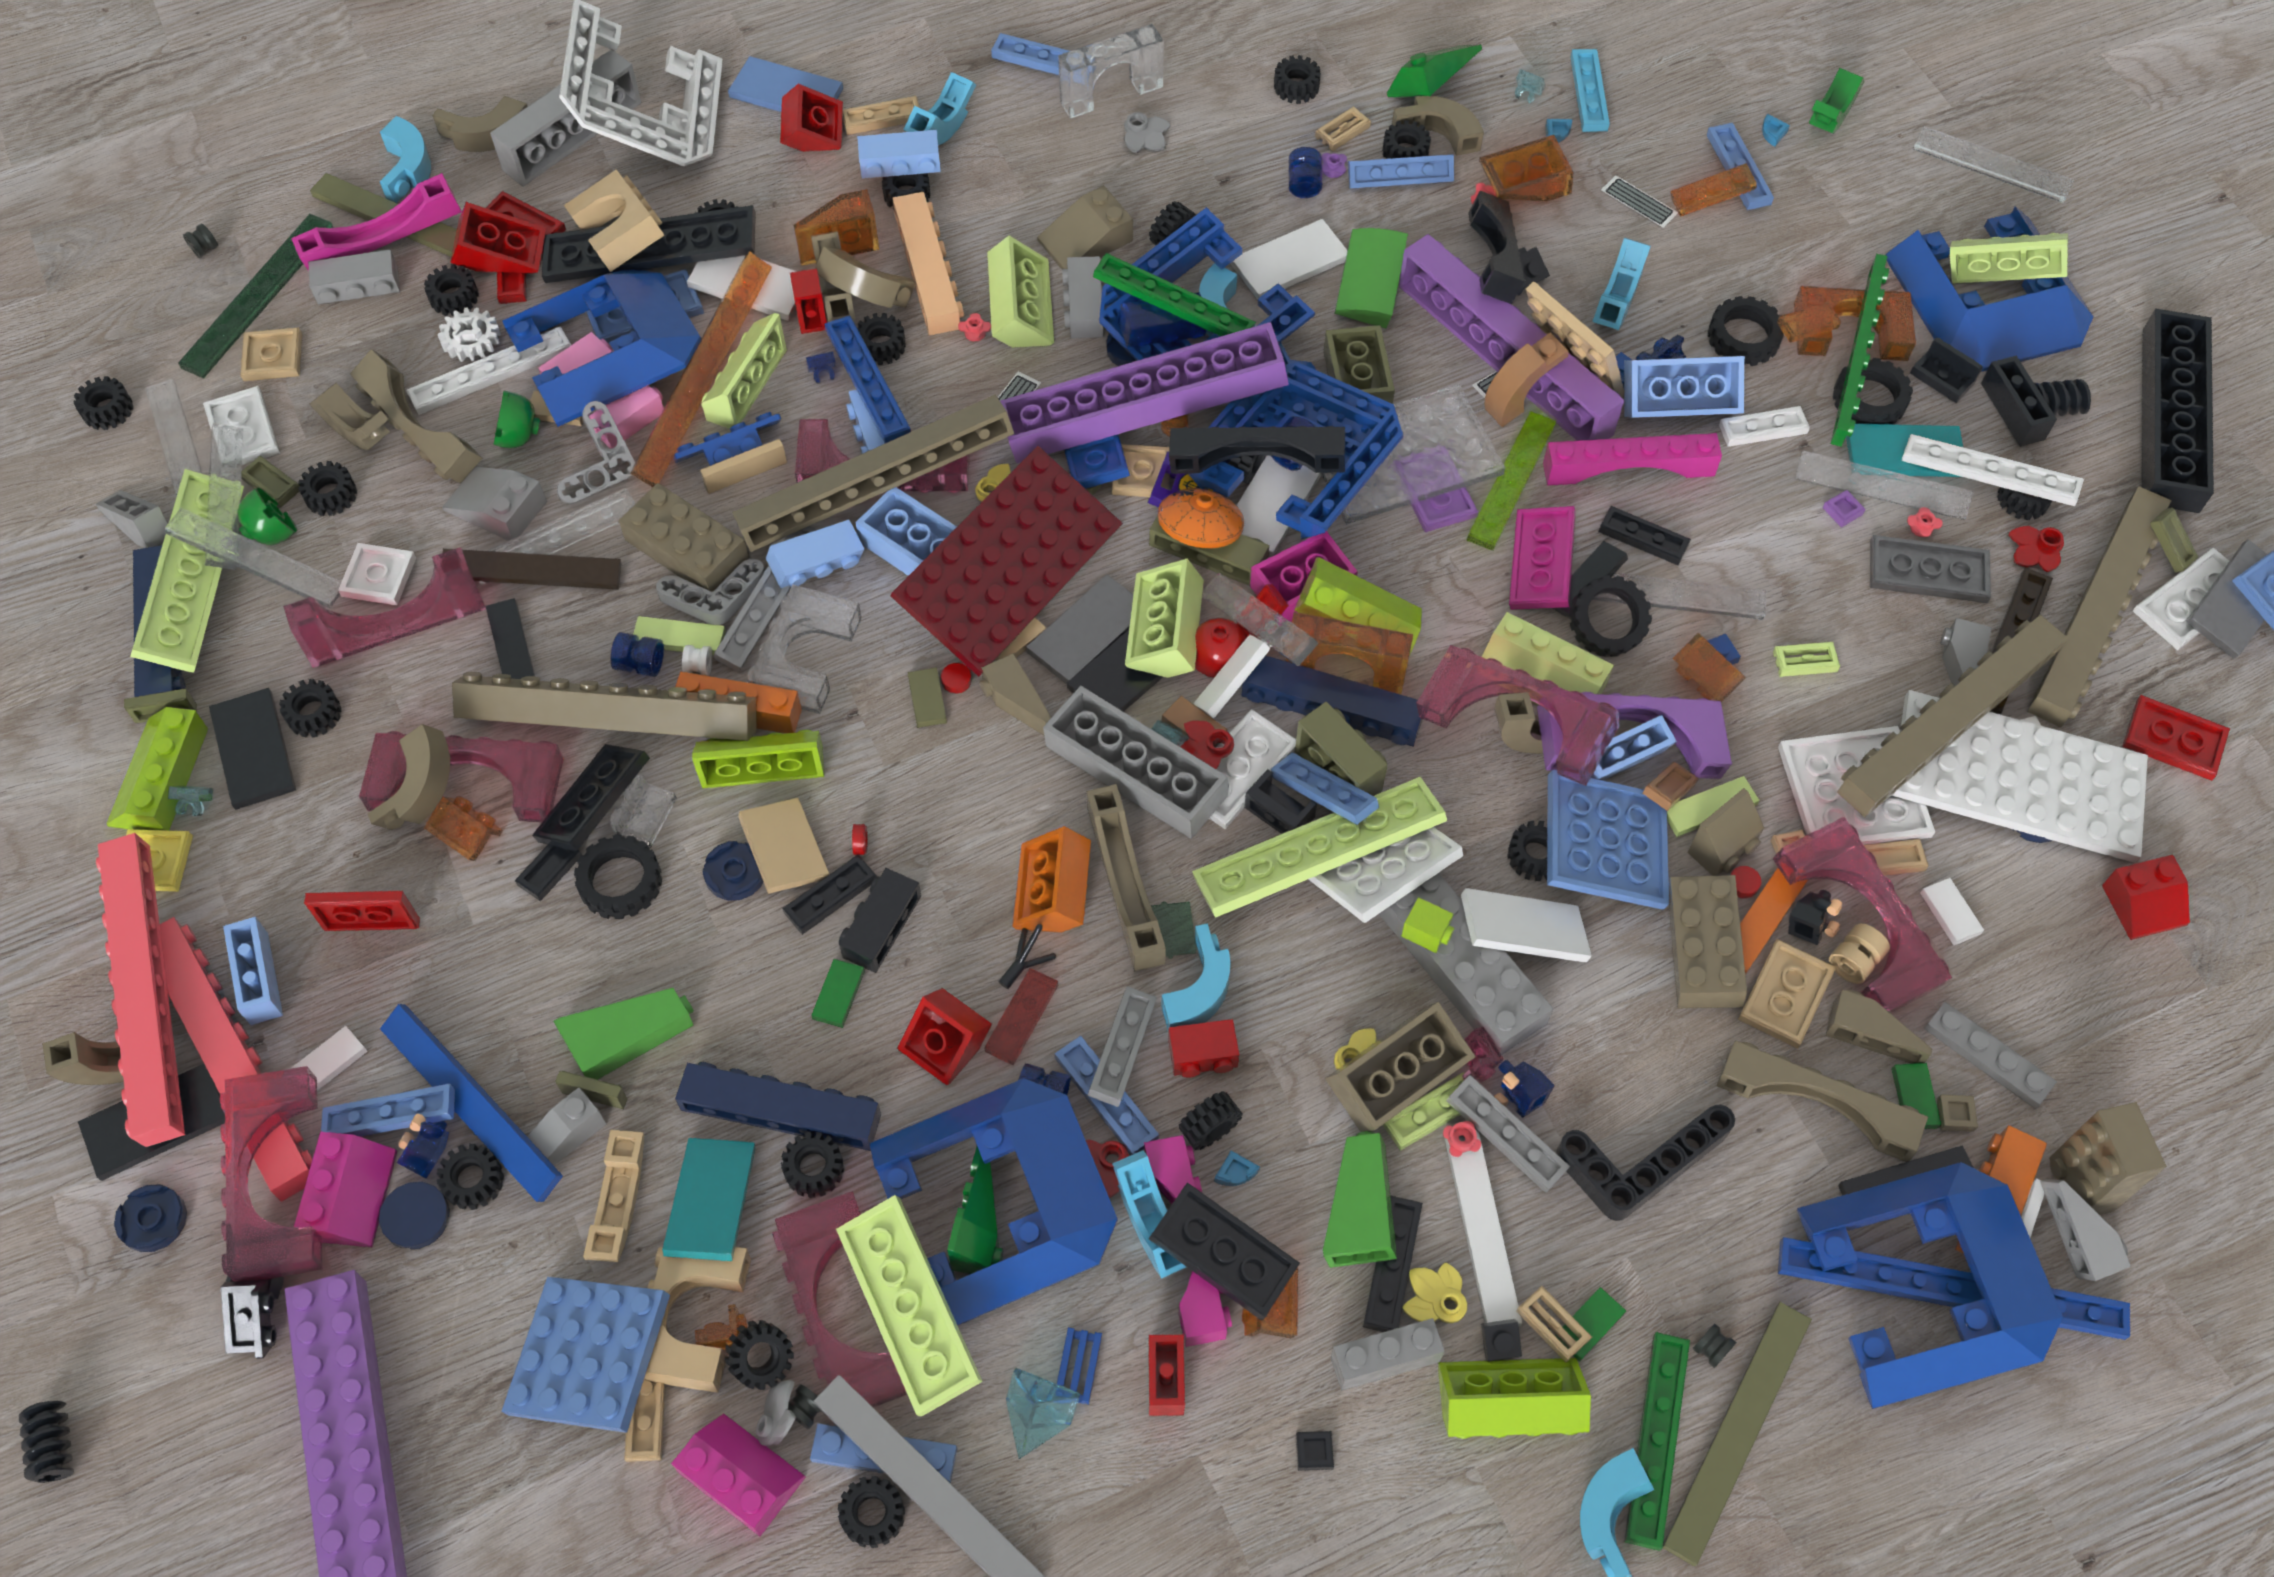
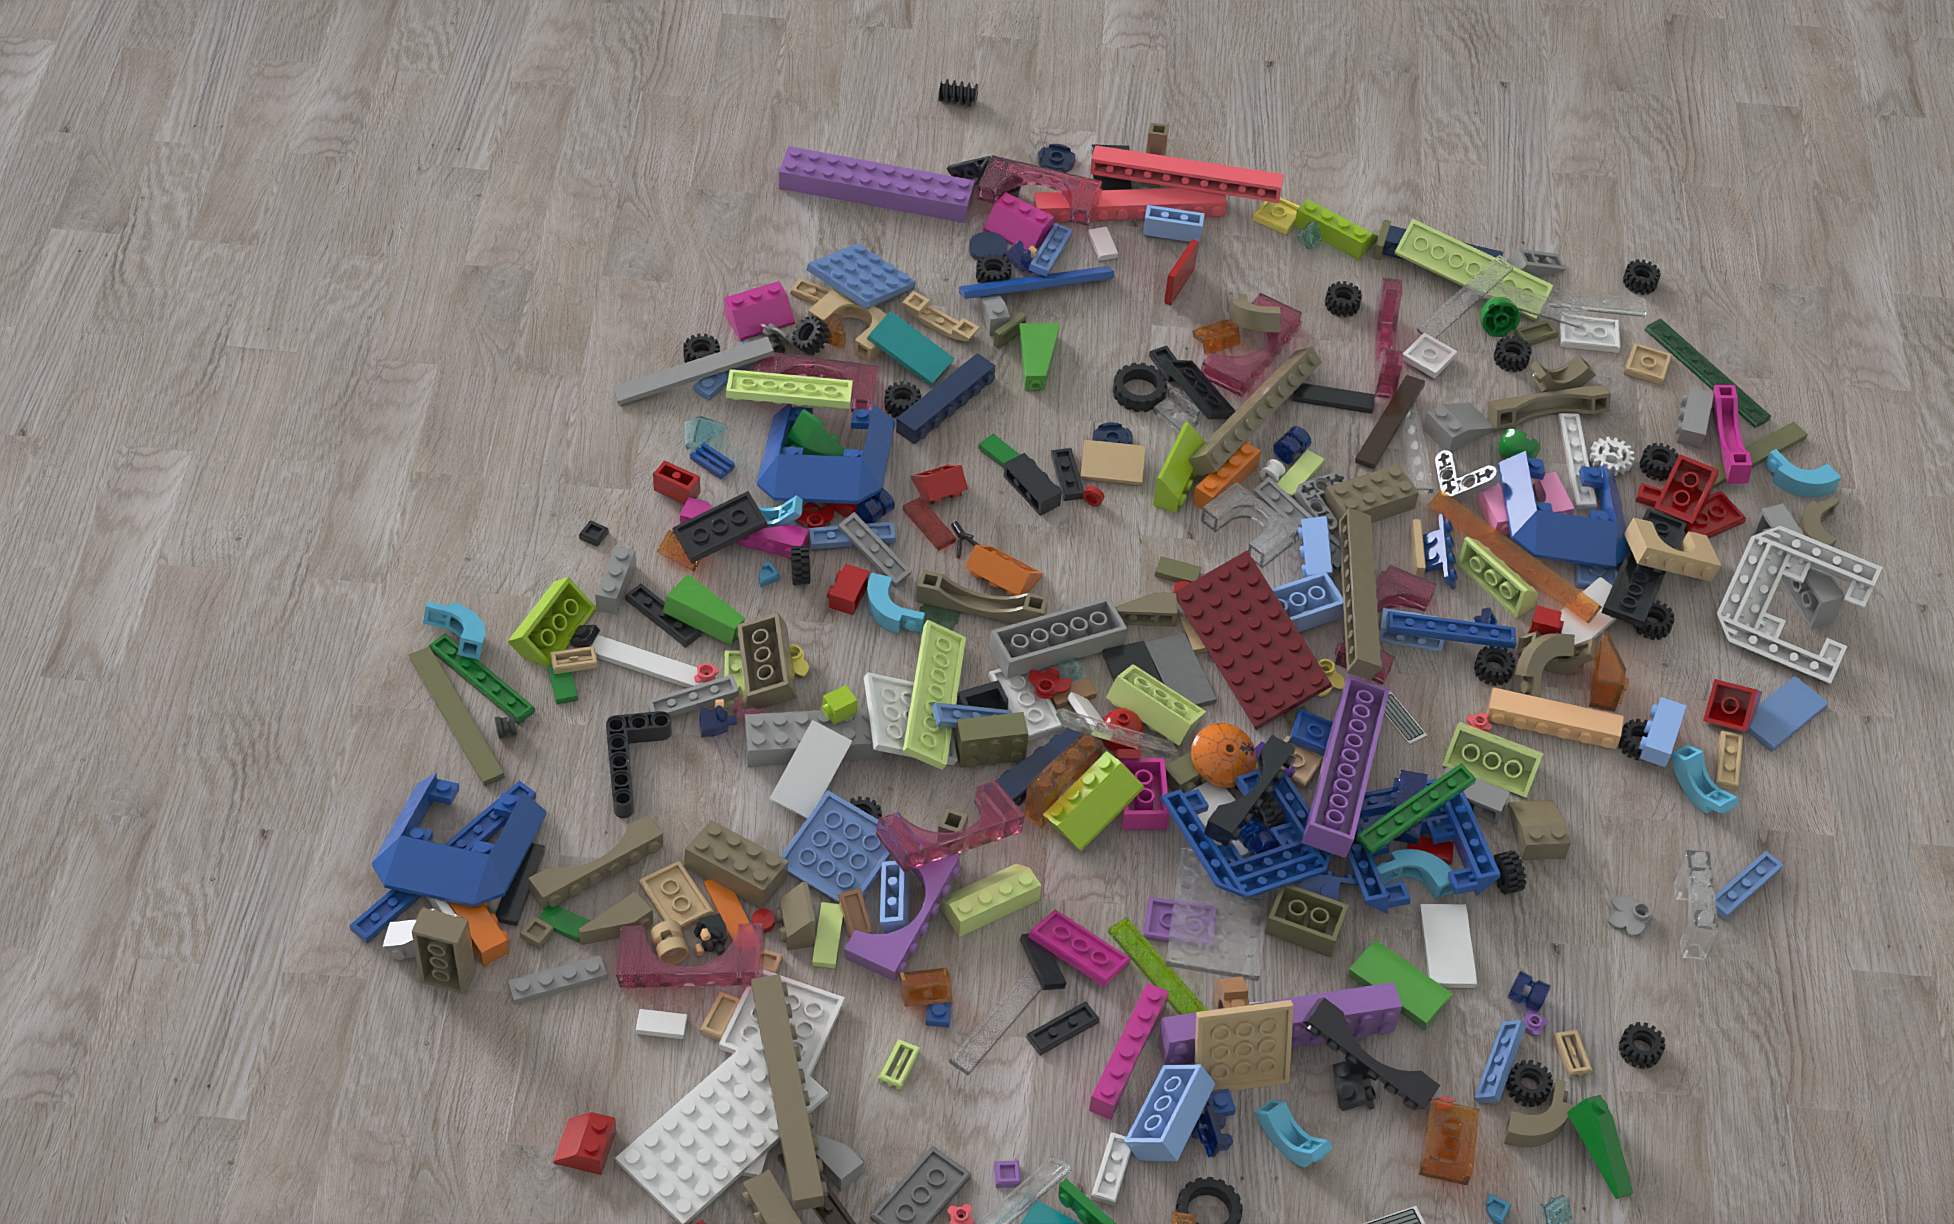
camera: 115 degrees right, 10 degrees down
(200, 240) = (1768, 355): pearl dark grey wheel -> none
(252, 748) = (1329, 269): black tile -> none
(1432, 1291) = (630, 622): light yellow plate -> none
(1634, 599) = (1011, 969): black tyre -> none

